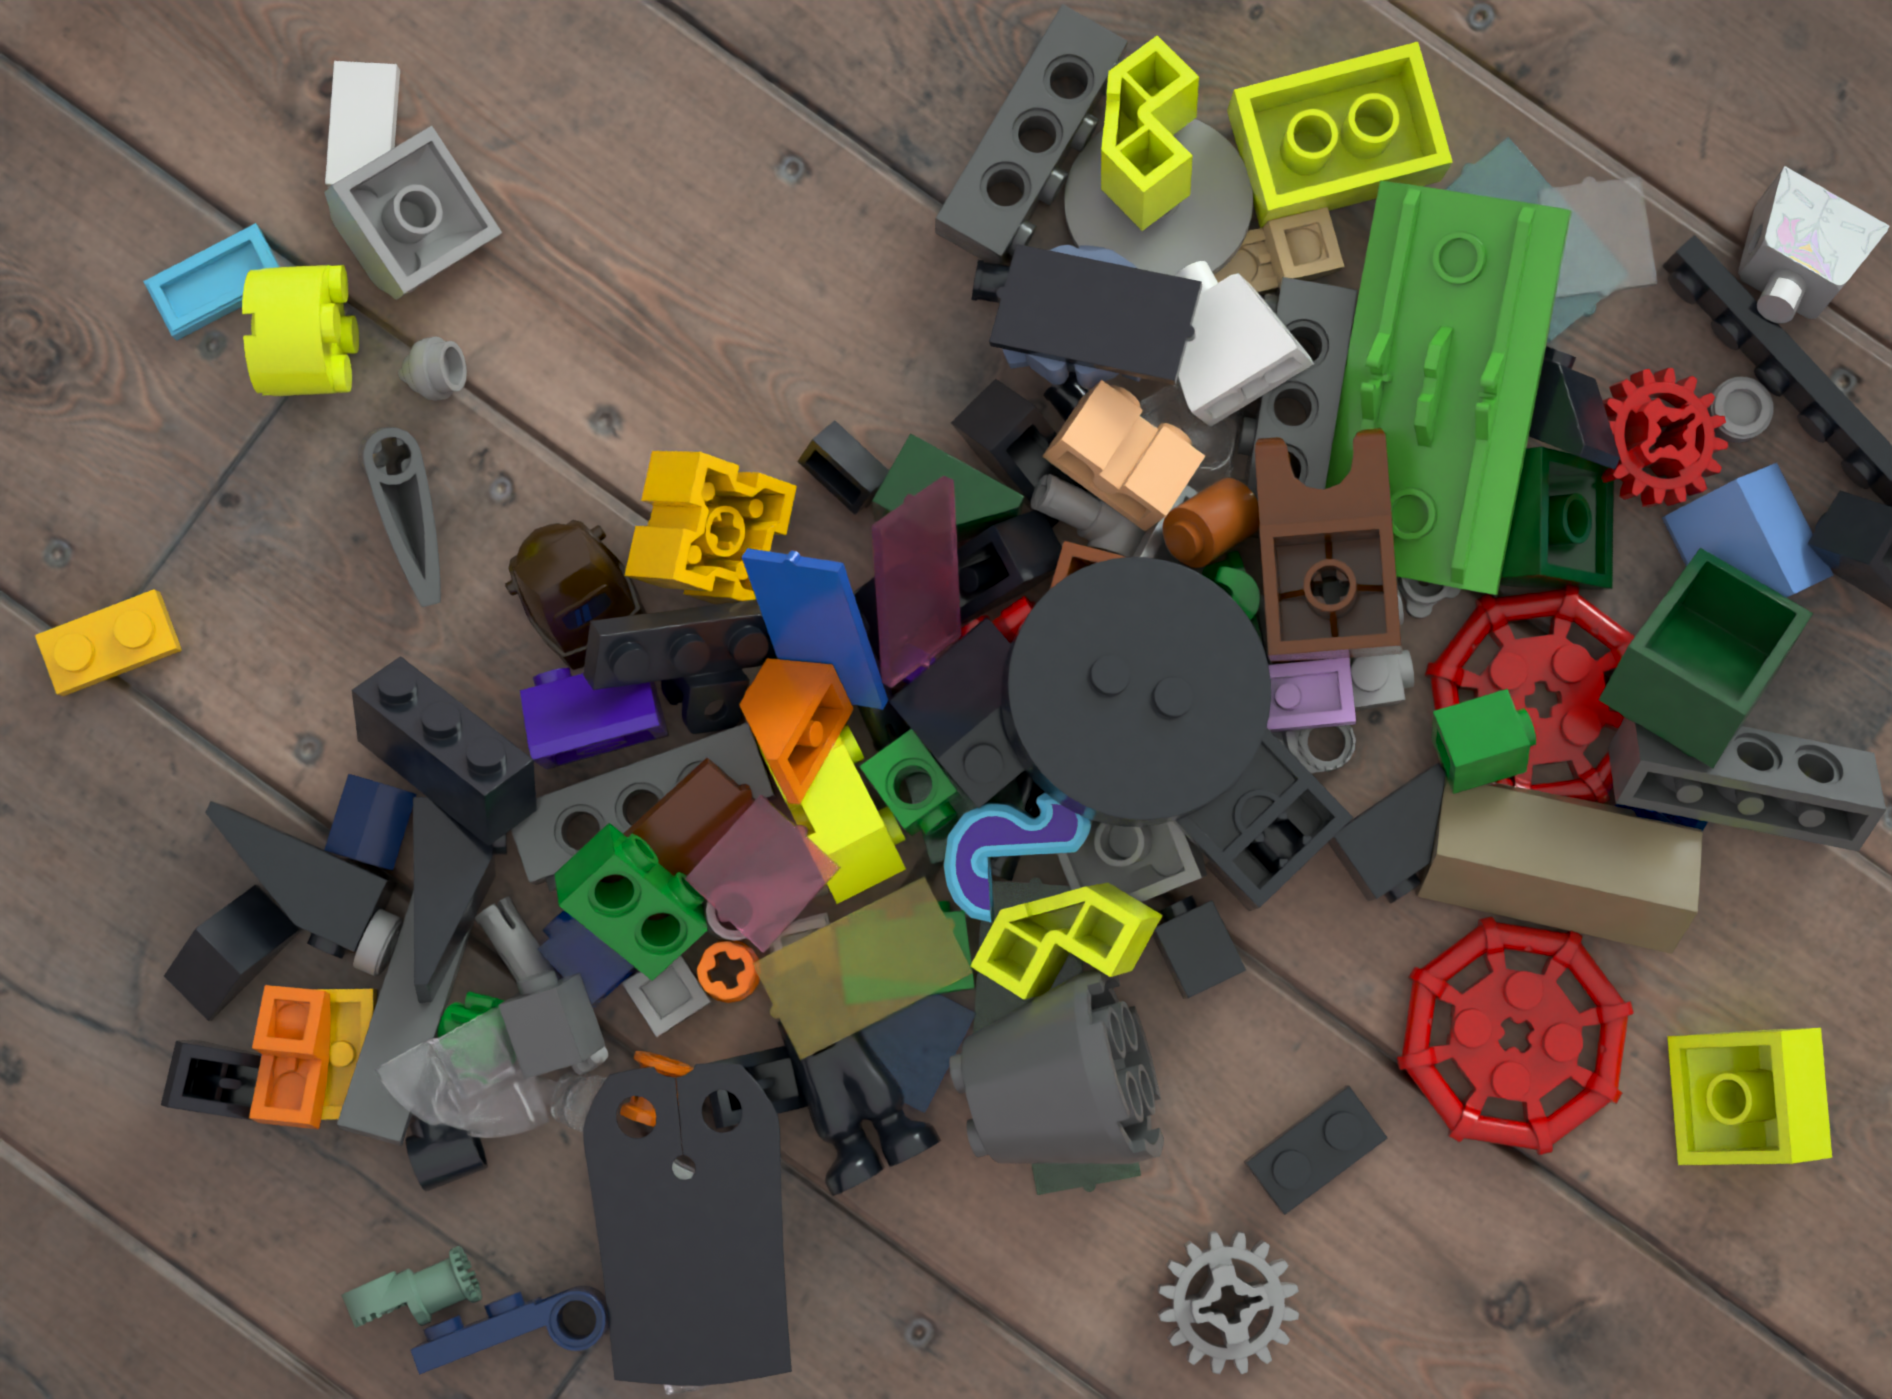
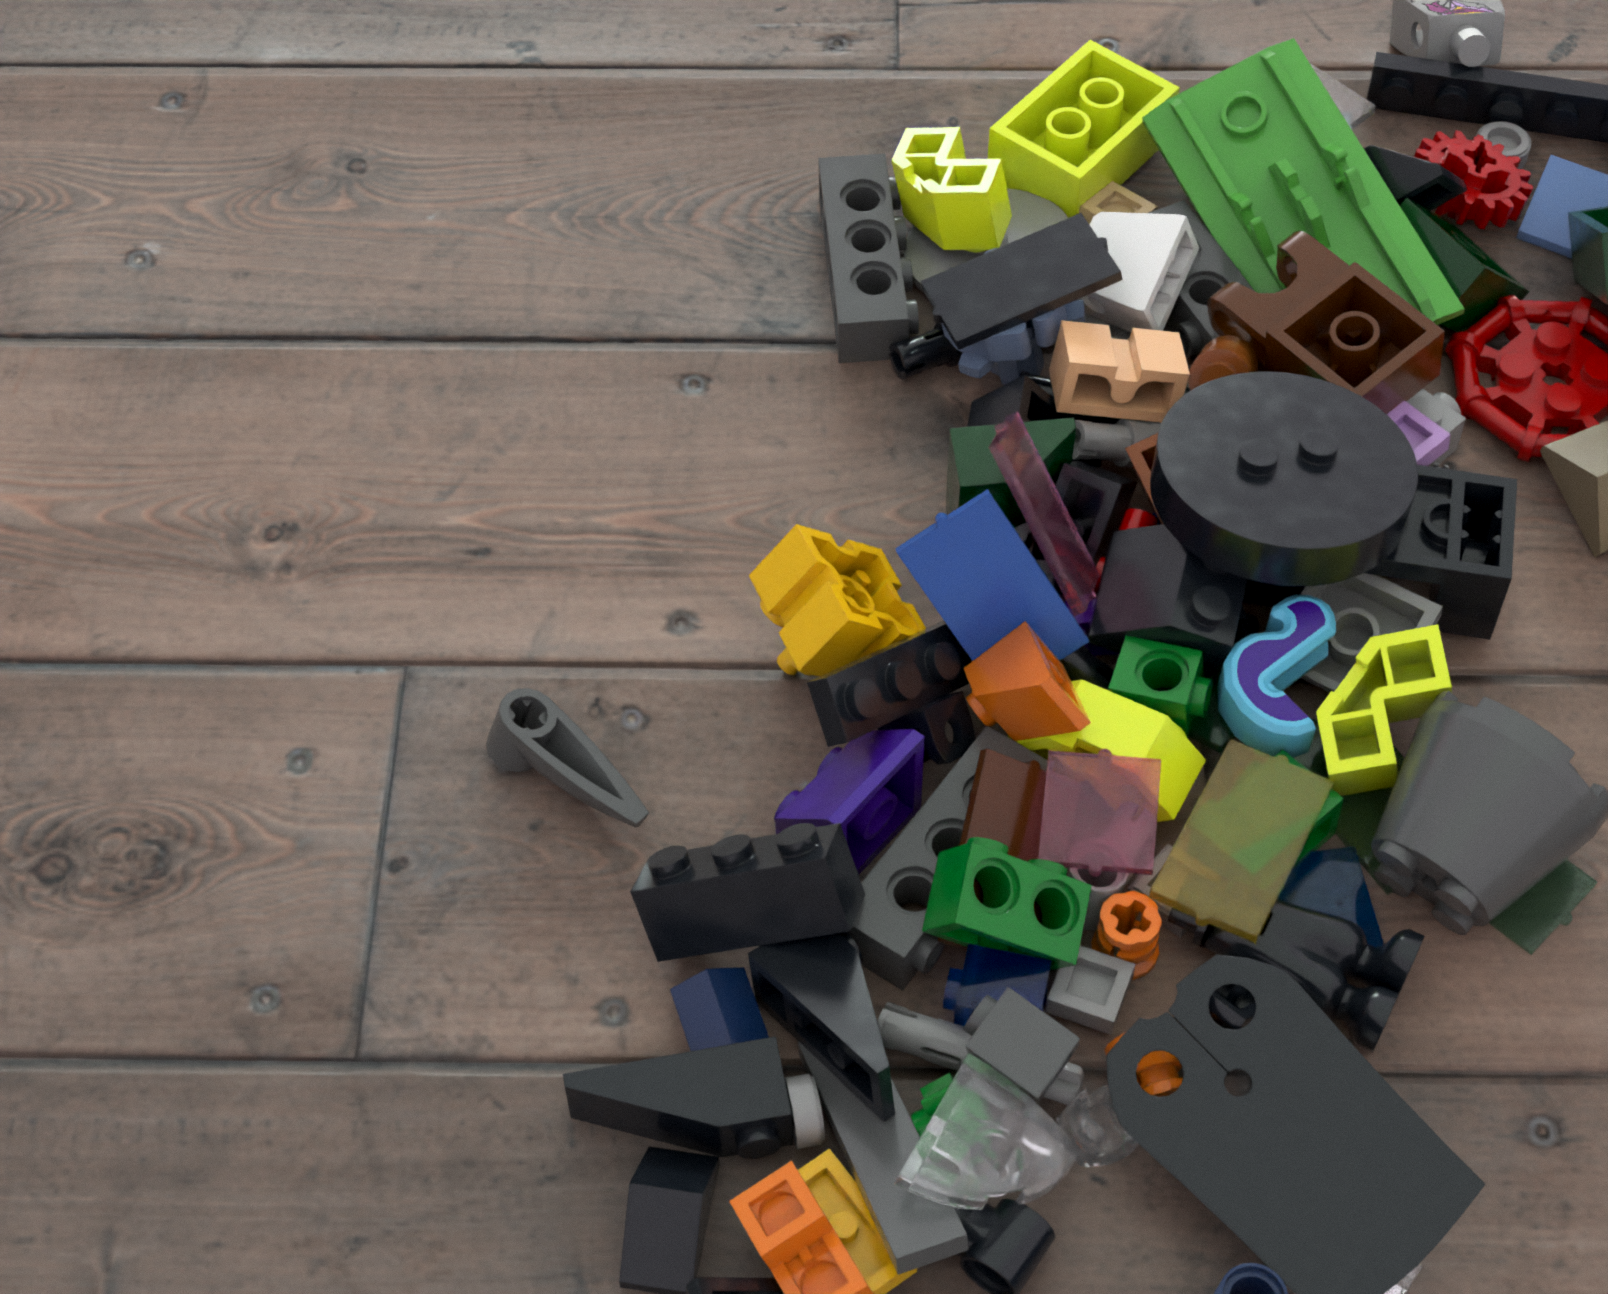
camera: 30 degrees left, 30 degrees down
(108, 642) = (364, 1034): yellow plate -> none
(209, 281) = (271, 709): medium azure tile -> none
(299, 330) = (378, 675): neon yellow brick -> none
(361, 116) = (323, 536): white tile -> none
(410, 214) = (409, 560): light grey slope -> none
(434, 368) = (508, 657): light grey plate -> none
(568, 581) = (755, 735): dark brown helmet -> none
(844, 467) = (897, 517): black piece -> none
(1196, 946) = (1487, 667): black brick -> none
(1393, 838) = (1550, 517): black slope -> none
(1482, 740) = (1549, 397): green brick -> none

